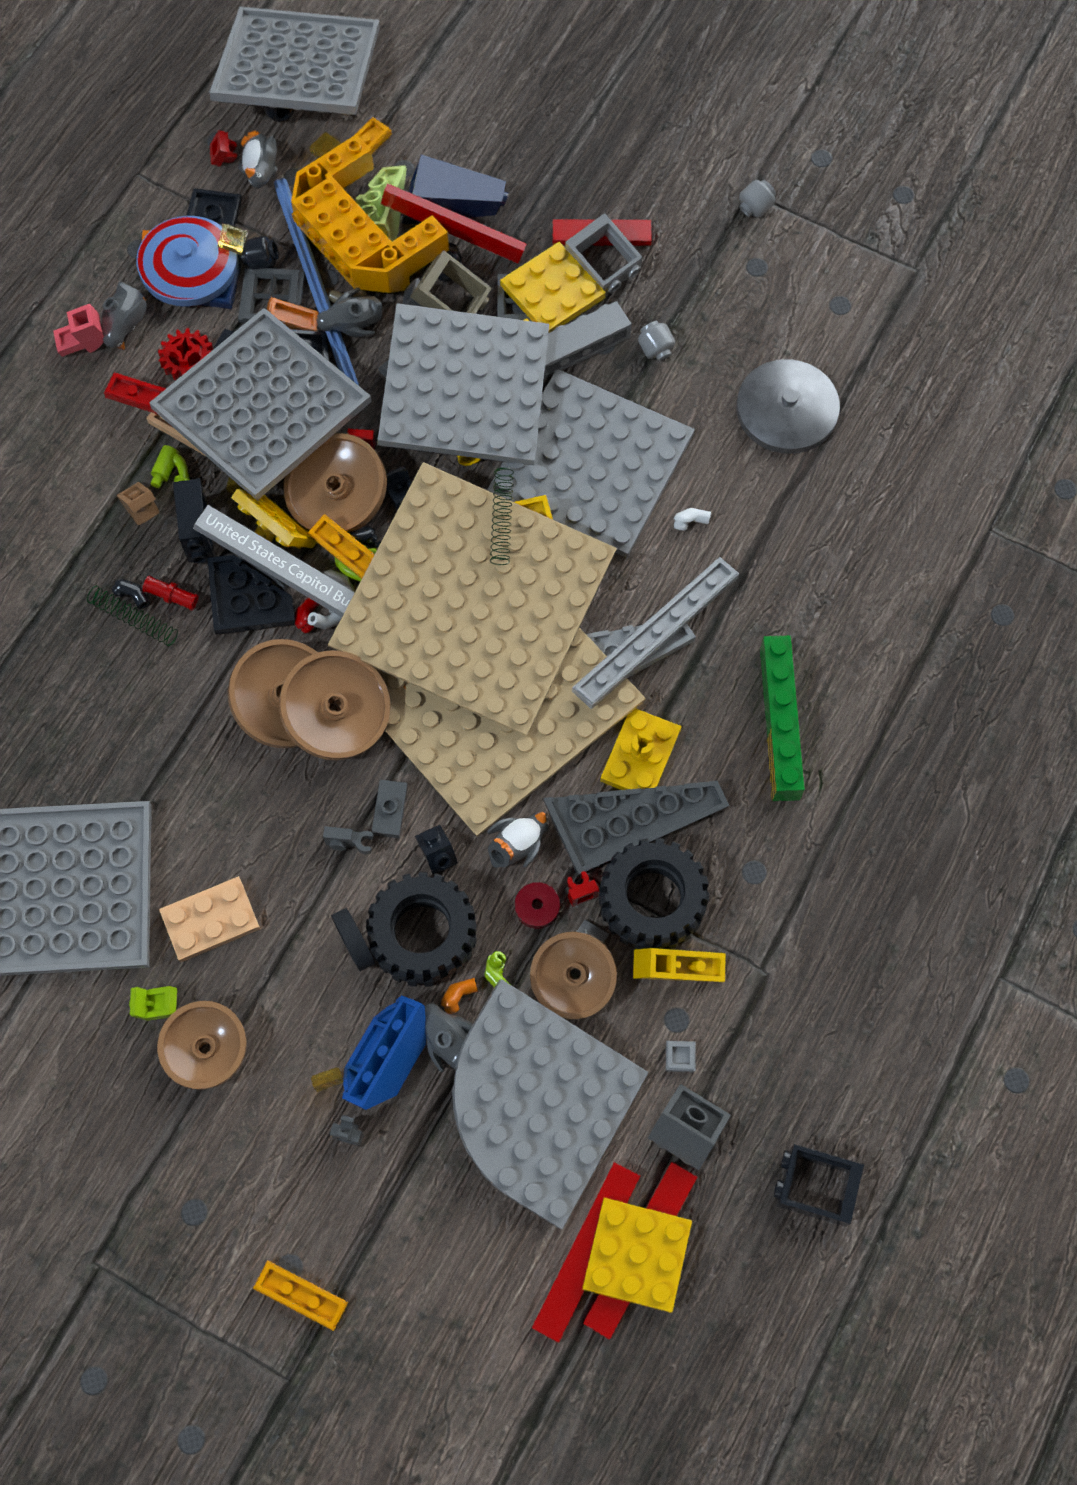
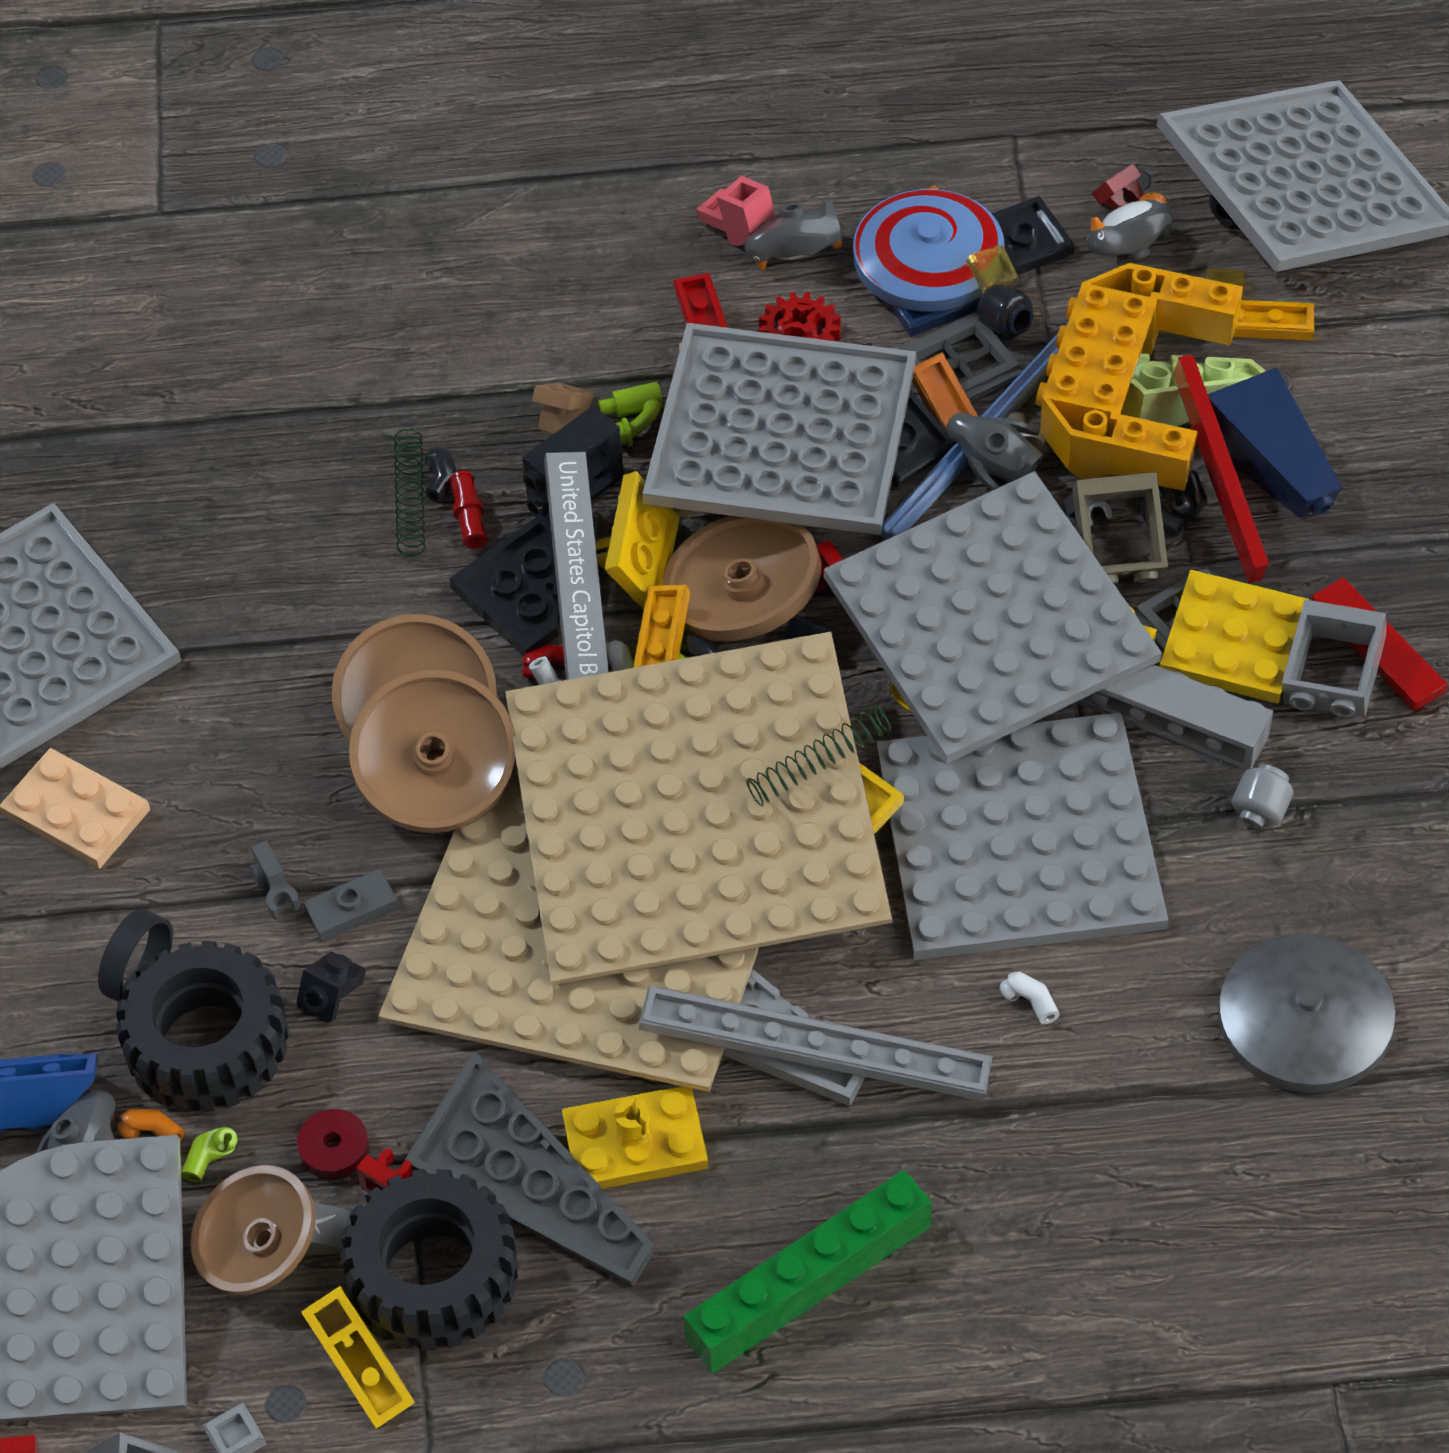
camera: 60 degrees right, 15 degrees down
(517, 839) = (400, 1060): animal -> none

